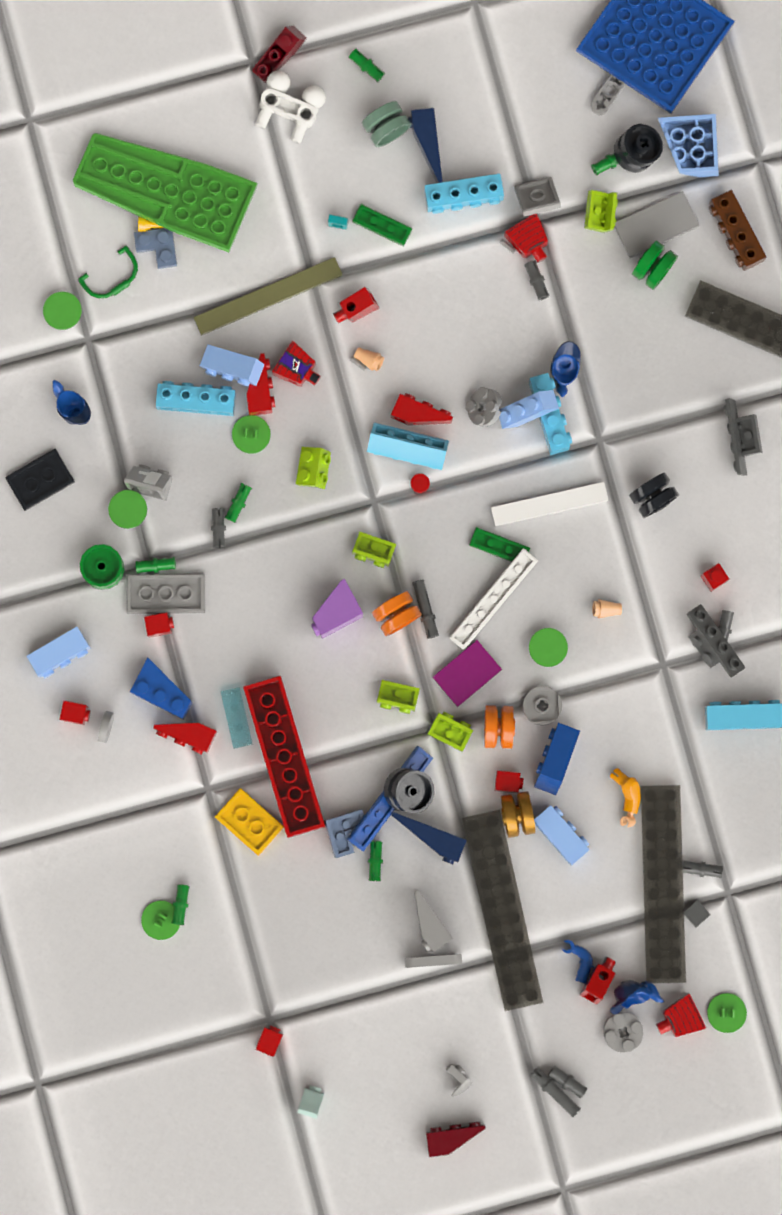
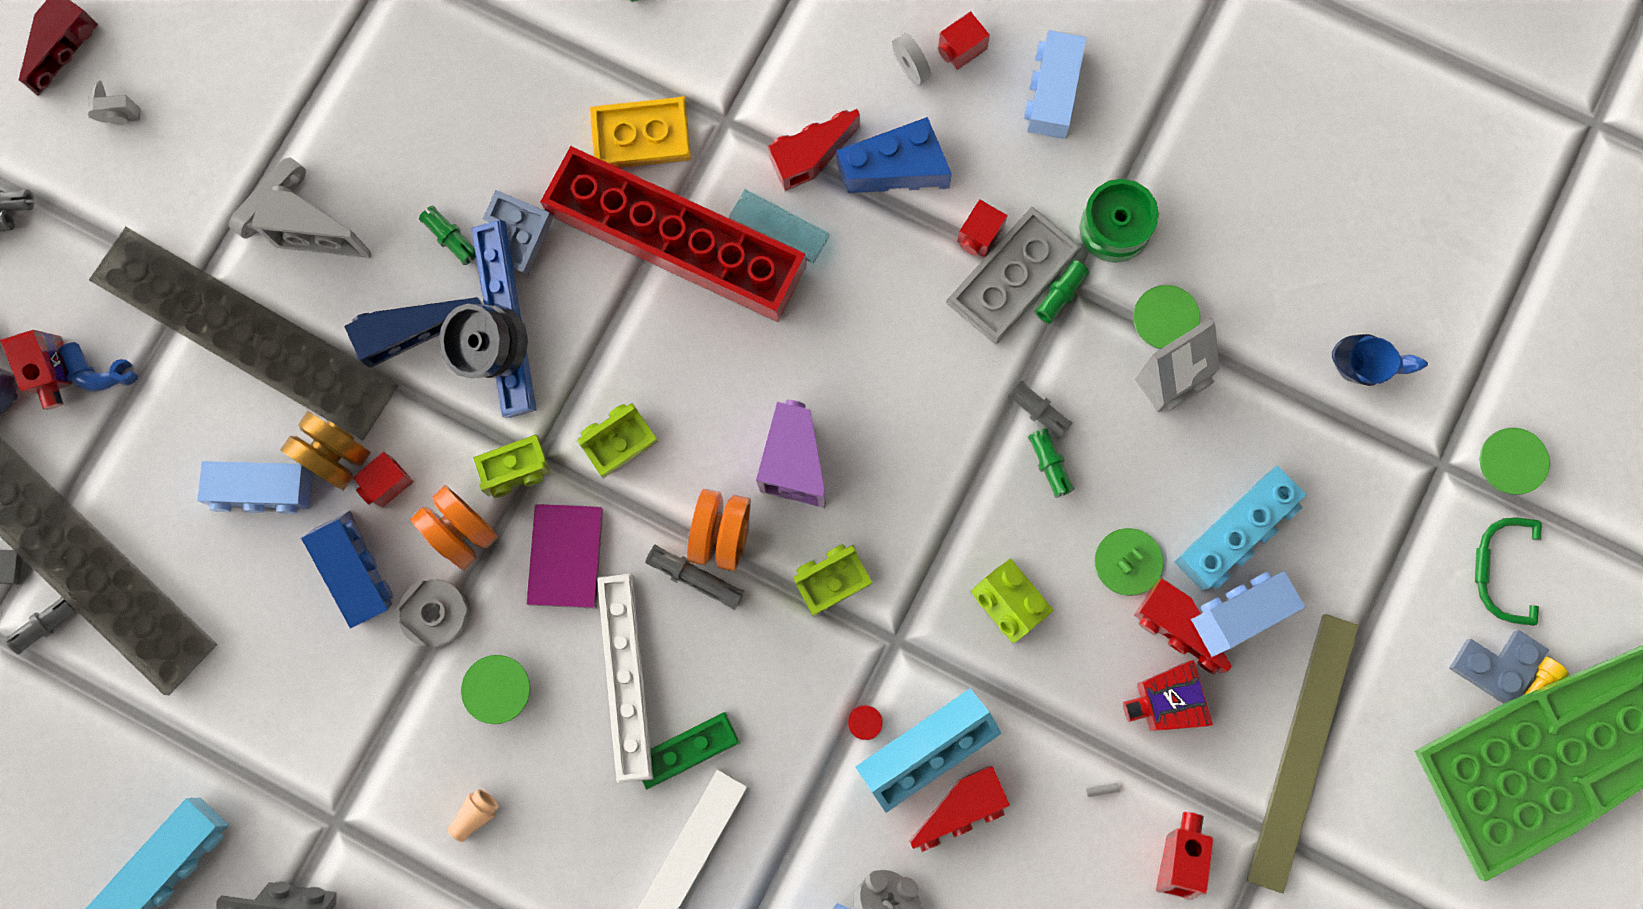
camera: 140 degrees right, 5 degrees down
(40, 479) = (1301, 248): black tile -> none
(369, 358) = (1095, 810): light nougat cone -> none
(632, 794) = (216, 623): light orange arm -> none

